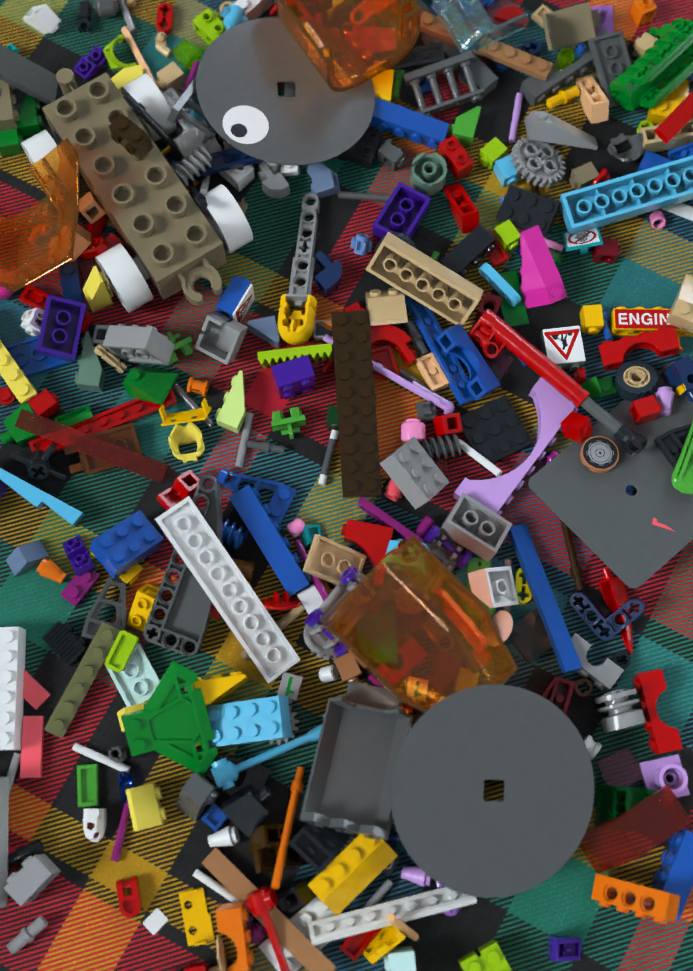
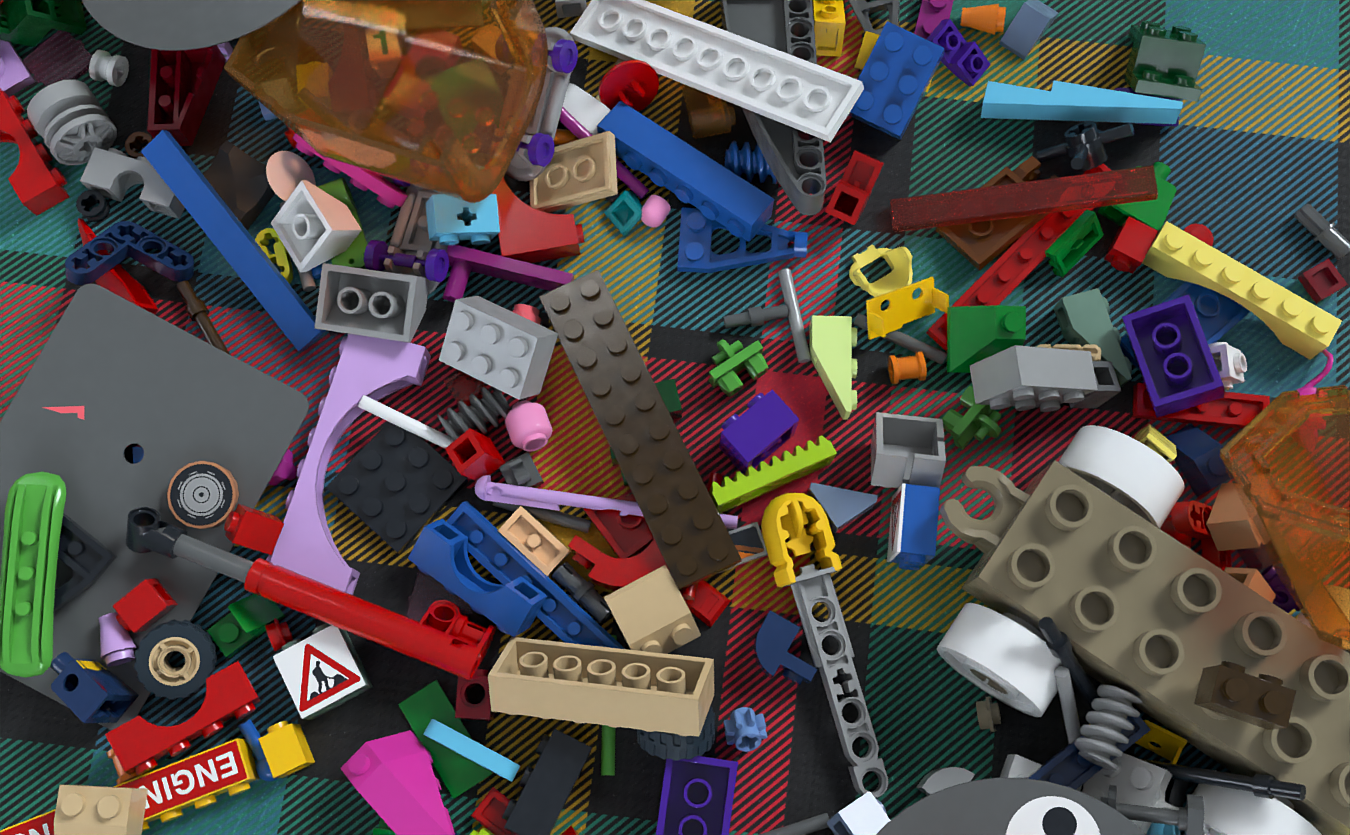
camera: 160 degrees right, 0 degrees up
(328, 457) = (649, 335): dark grey bar -> none

